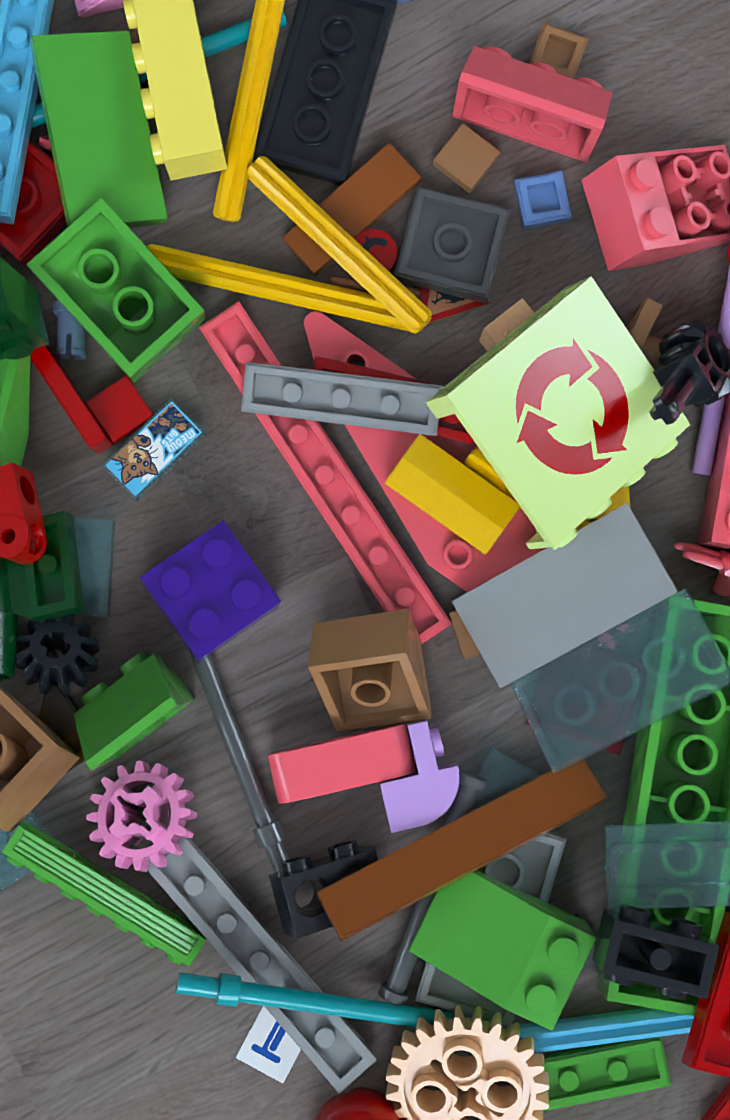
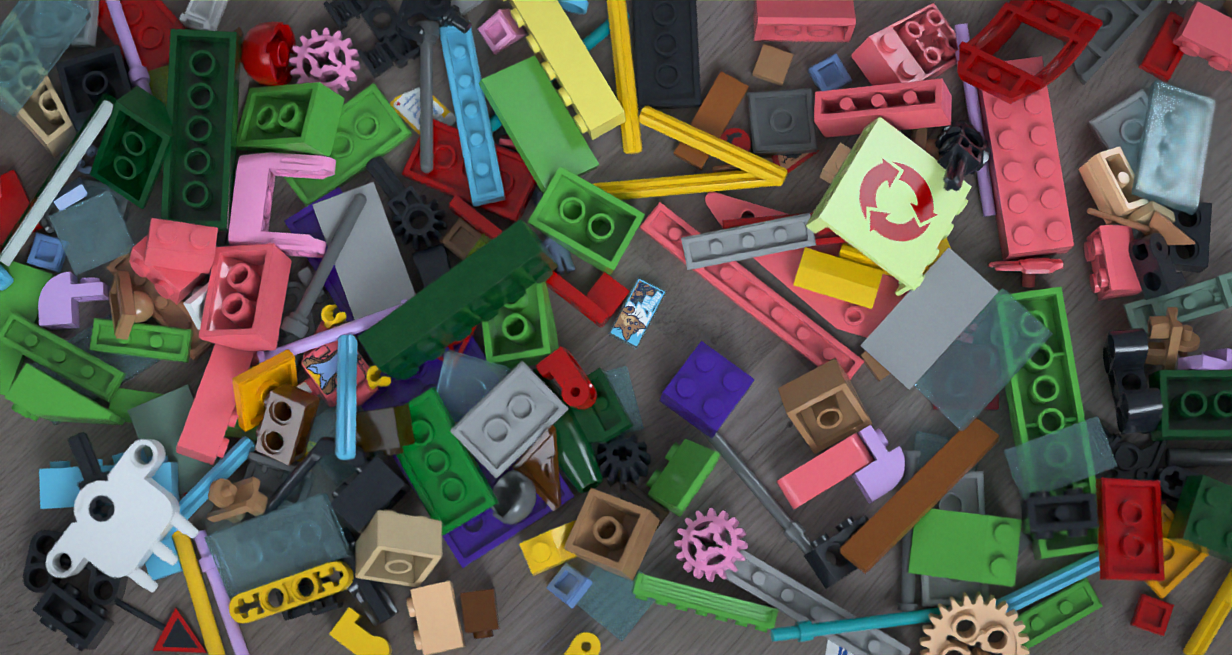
camera: 10 degrees left, 5 degrees down
(630, 270) = (900, 104): none -> coral brick

